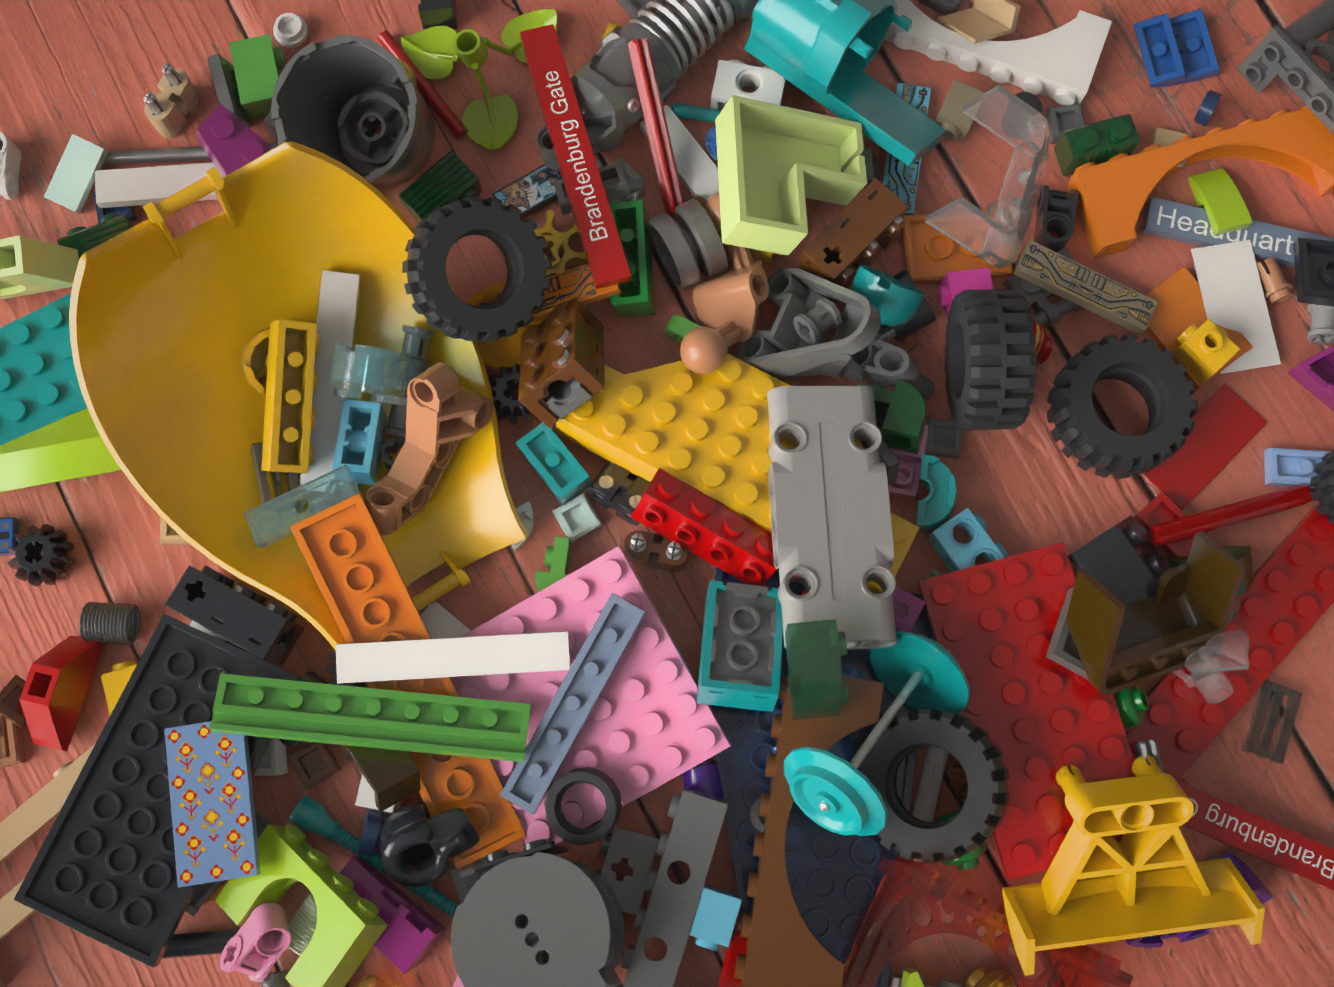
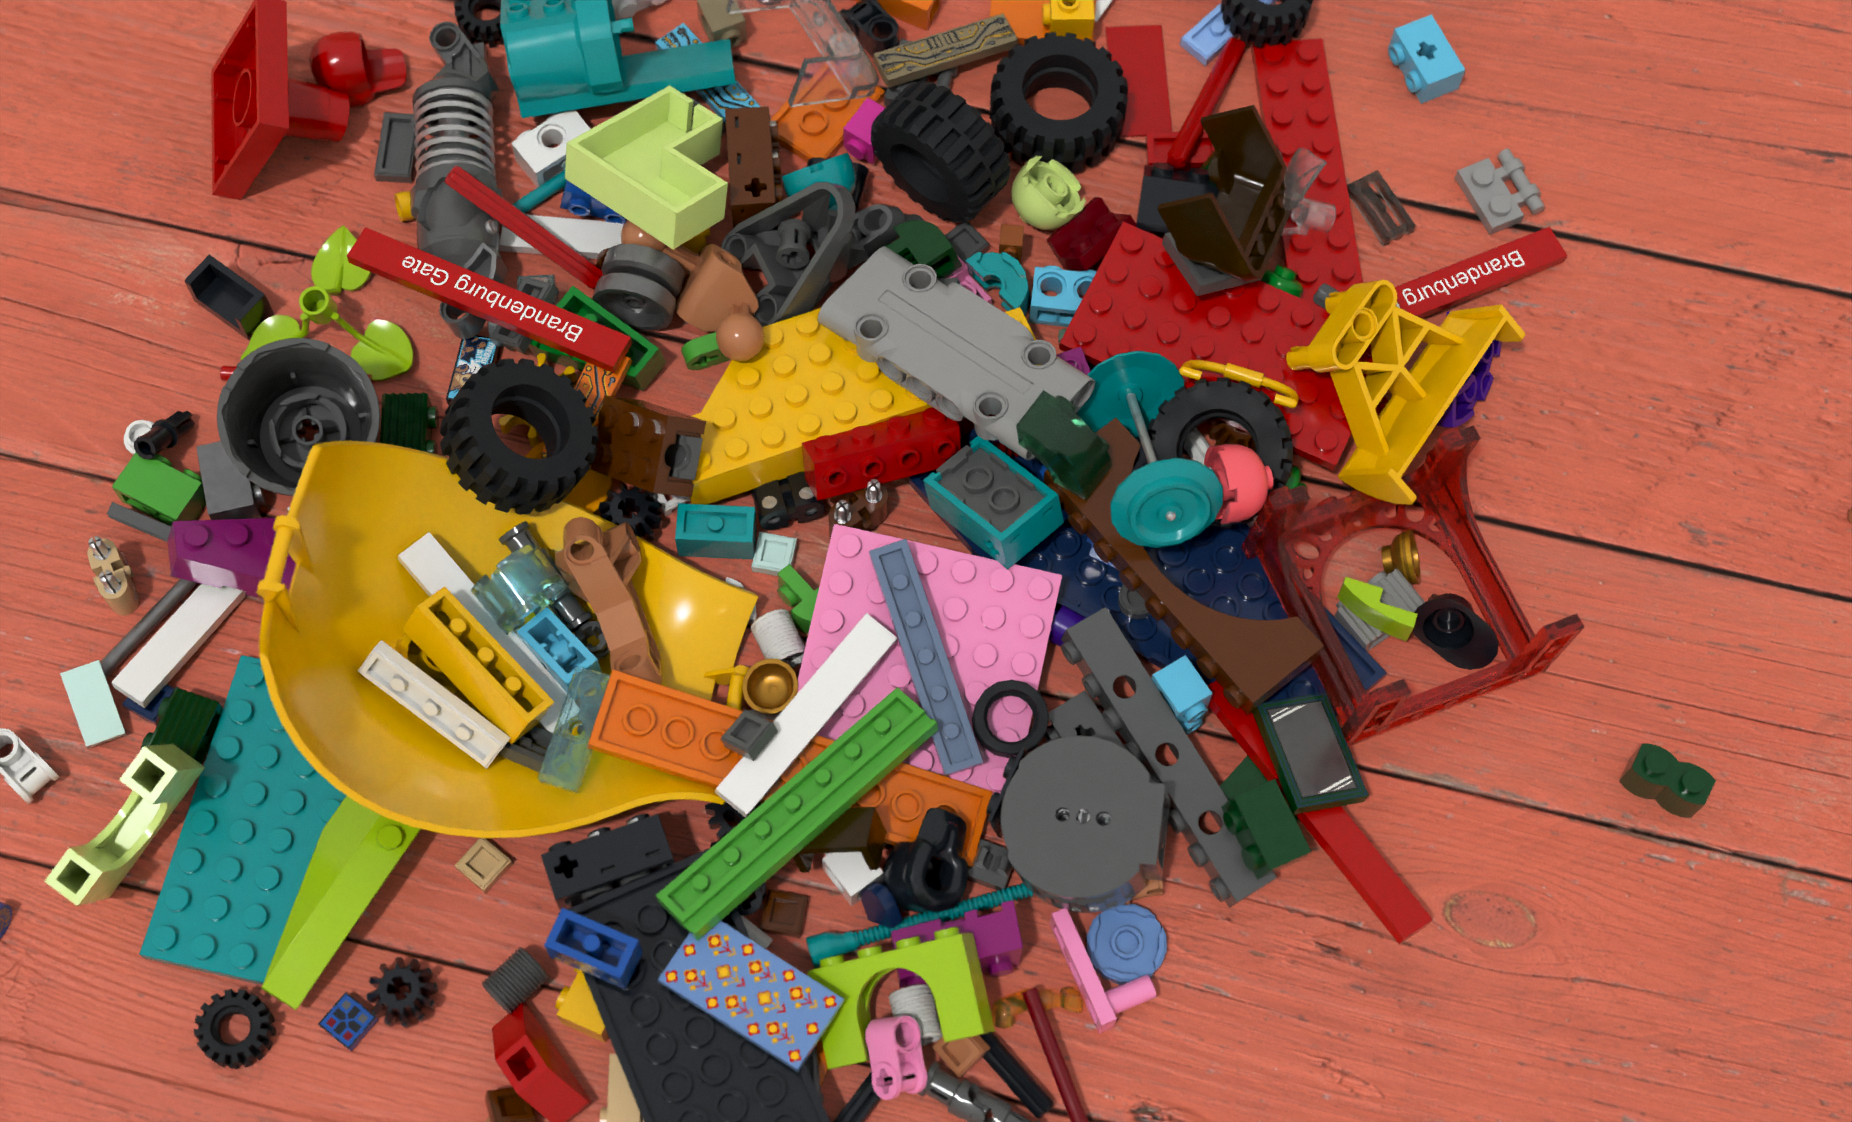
camera: 50 degrees left, 10 degrees down
(143, 665) = (593, 948): none -> blue brick
(237, 393) = (433, 704): none -> white tile
(291, 39) = (163, 434): none -> black axle
(396, 632) = (749, 735): none -> dark grey tile
(464, 607) = (770, 686): none -> pearl gold piece
(510, 580) = (779, 637): none -> white piece
(910, 830) = (1242, 478): none -> coral cylinder
(970, 473) = (1011, 240): none -> dark orange piece
(1016, 748) = (1240, 373): none -> yellow piece
(1034, 523) = (1087, 235): none -> dark red bracket
(1036, 464) = (1046, 194): none -> yellowish green cylinder

